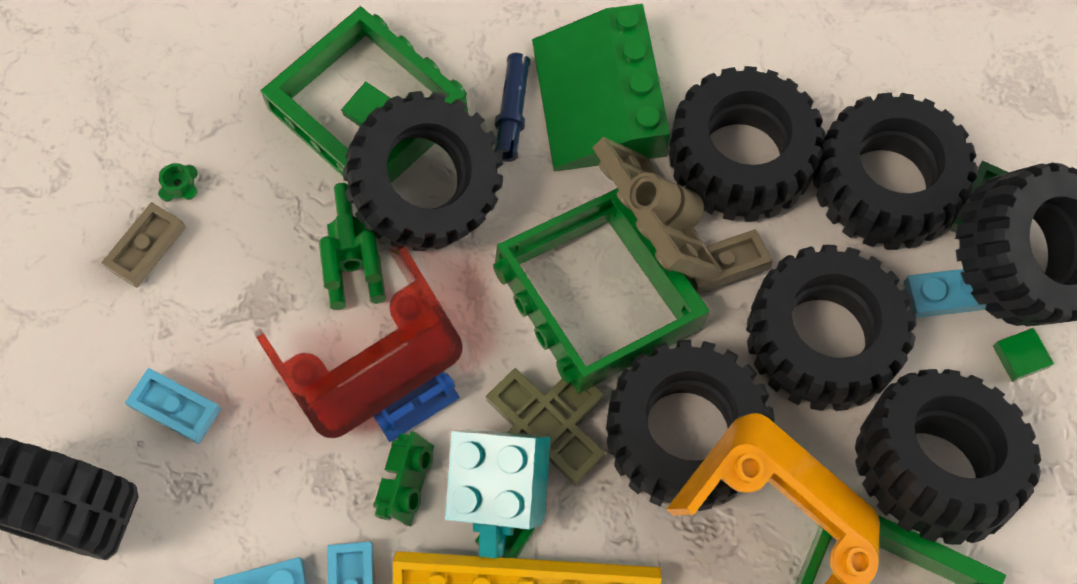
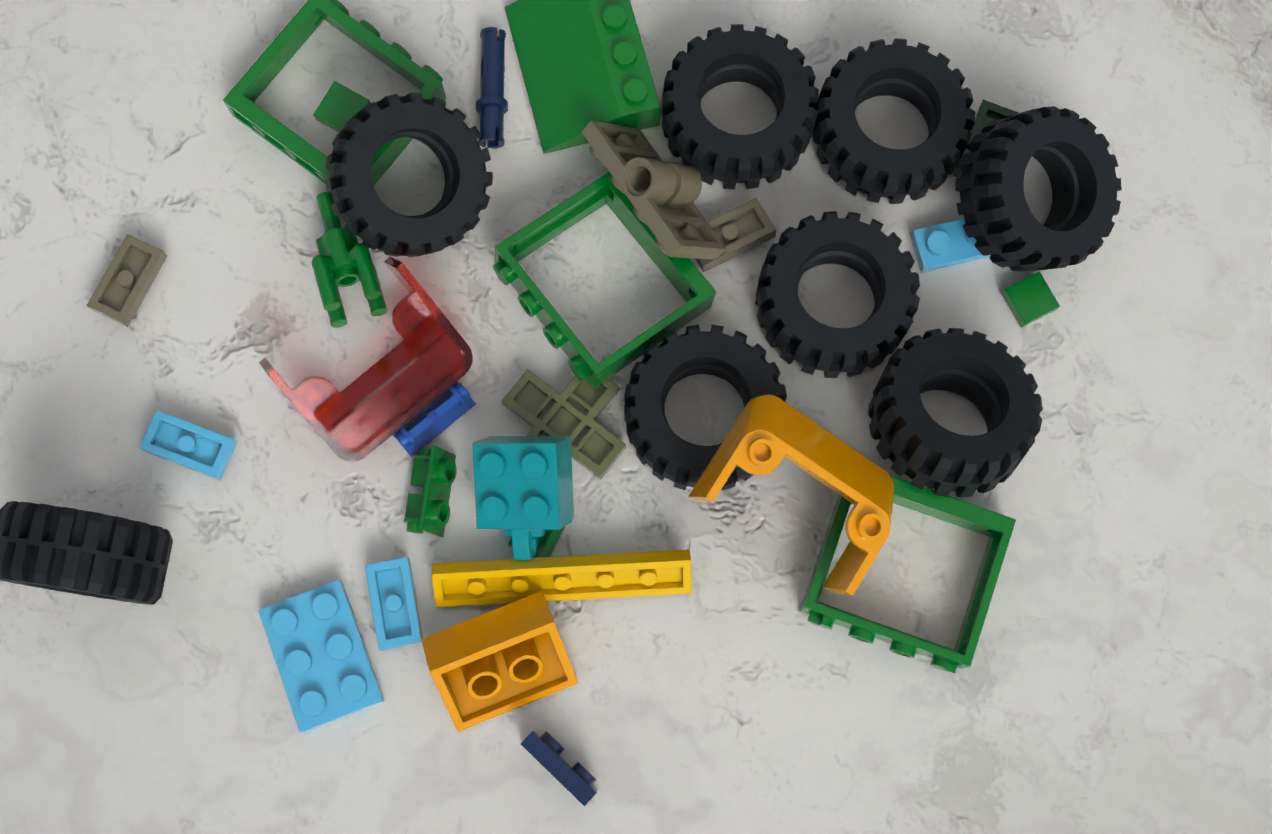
camera: 10 degrees left, 10 degrees up
(173, 173) = (142, 199): green plate -> none

